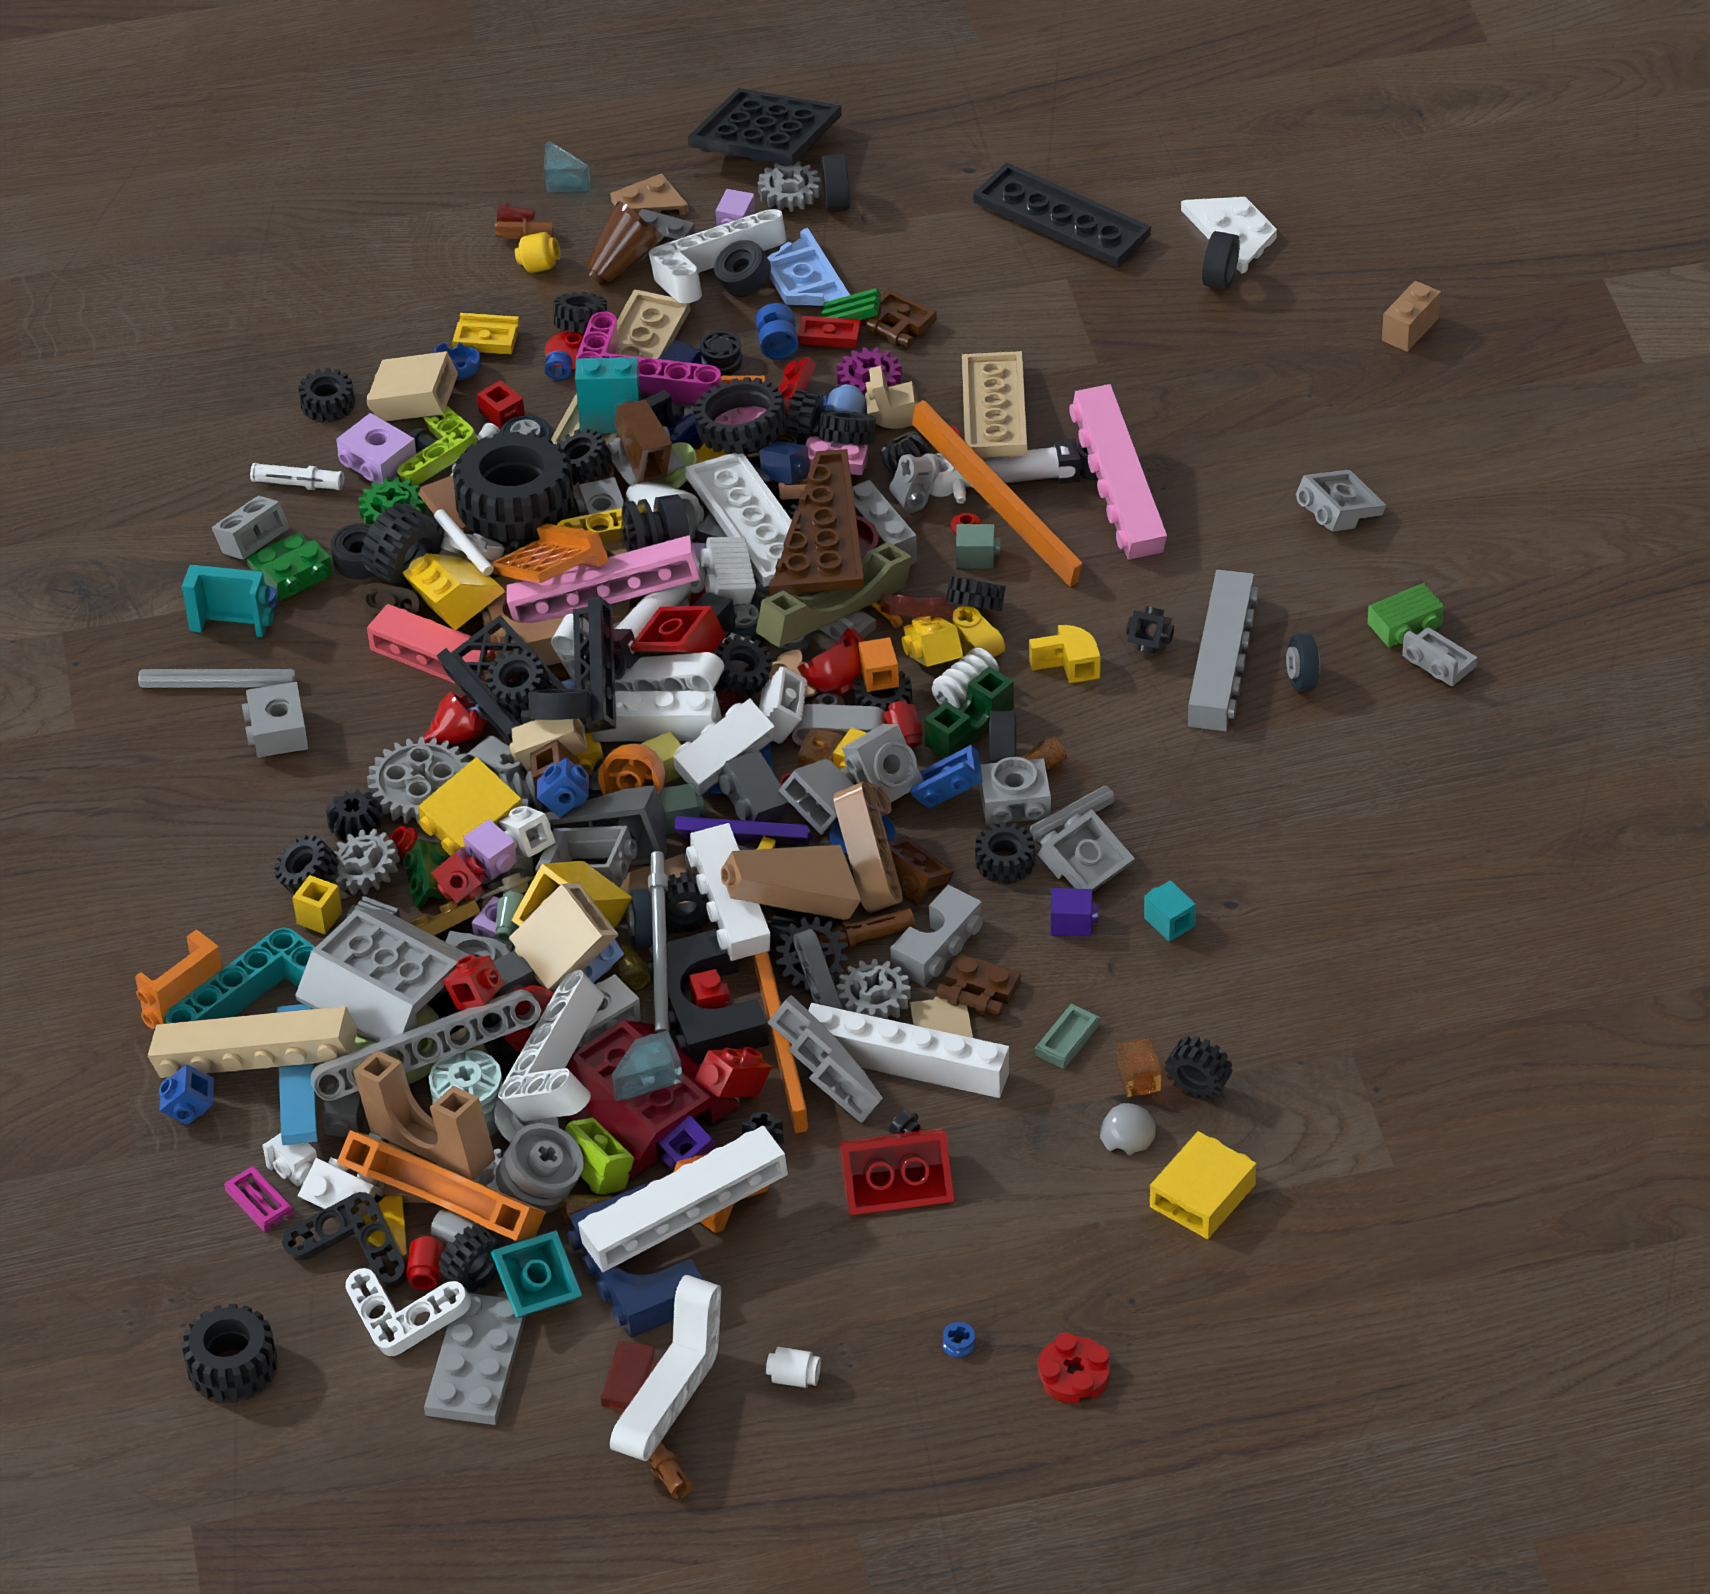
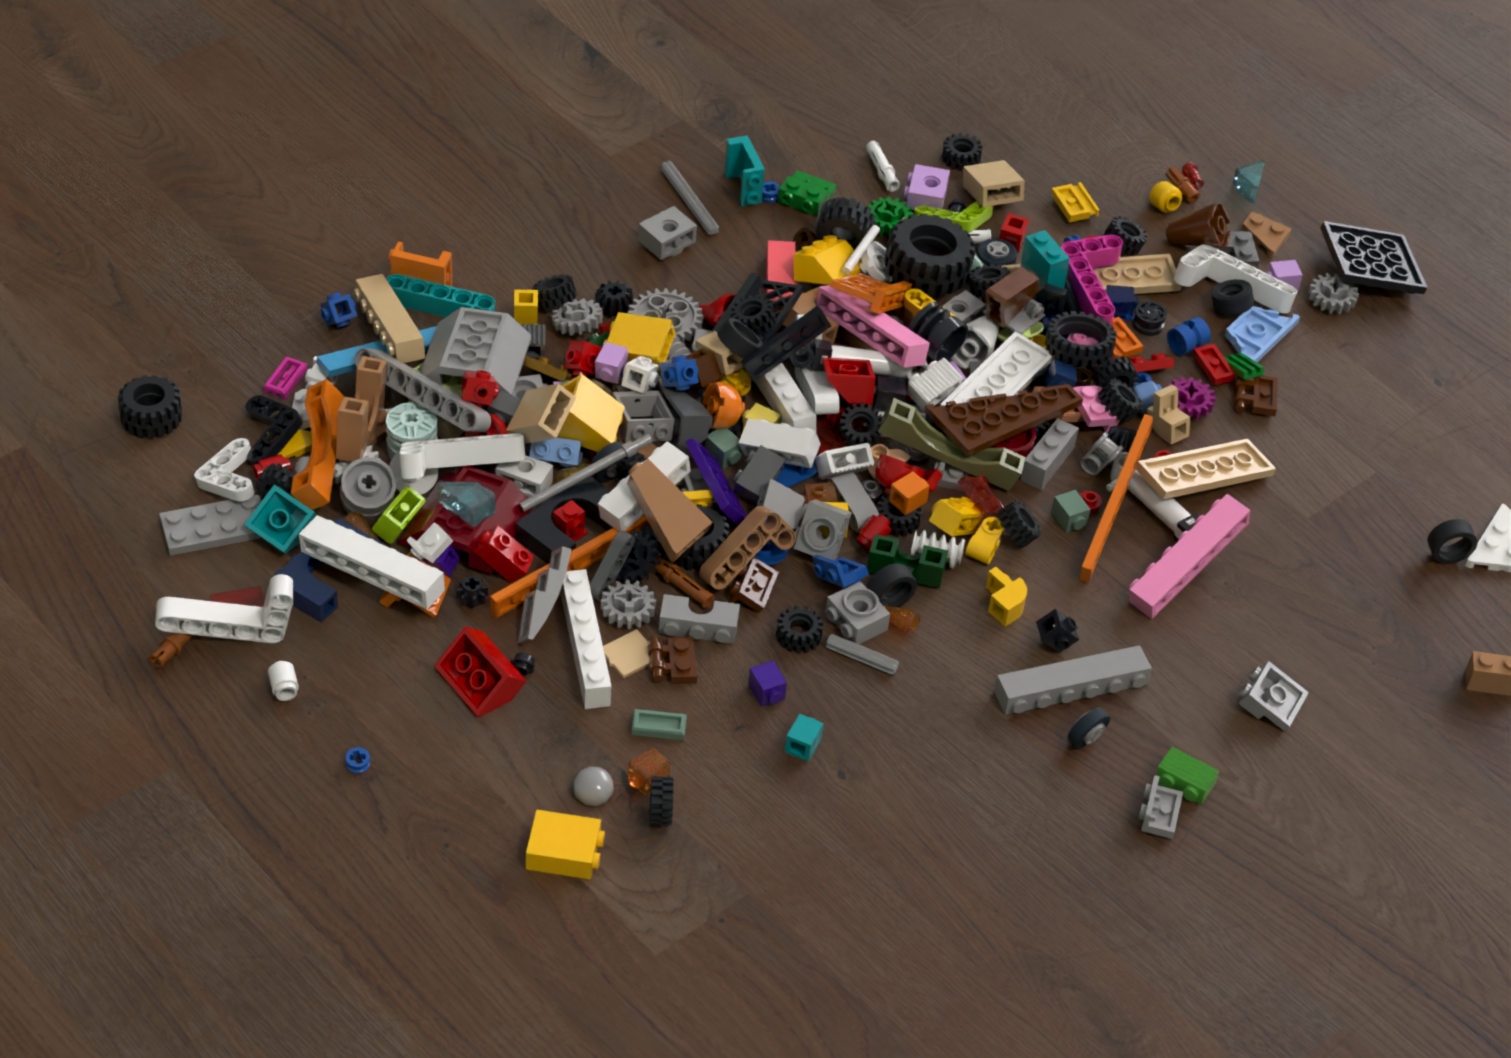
camera: 55 degrees right, 0 degrees up
(250, 527) = (818, 160): light grey brick -> none
(465, 359) = (1036, 196): blue hair -> none
(685, 1131) = (431, 543): none -> white bracket
(835, 182) = (1350, 311): black tyre -> none
(1062, 214) = (1431, 444): black plate -> none
(1078, 1351) = (360, 819): red plate -> none
(1085, 852) = (824, 671): light grey plate -> none

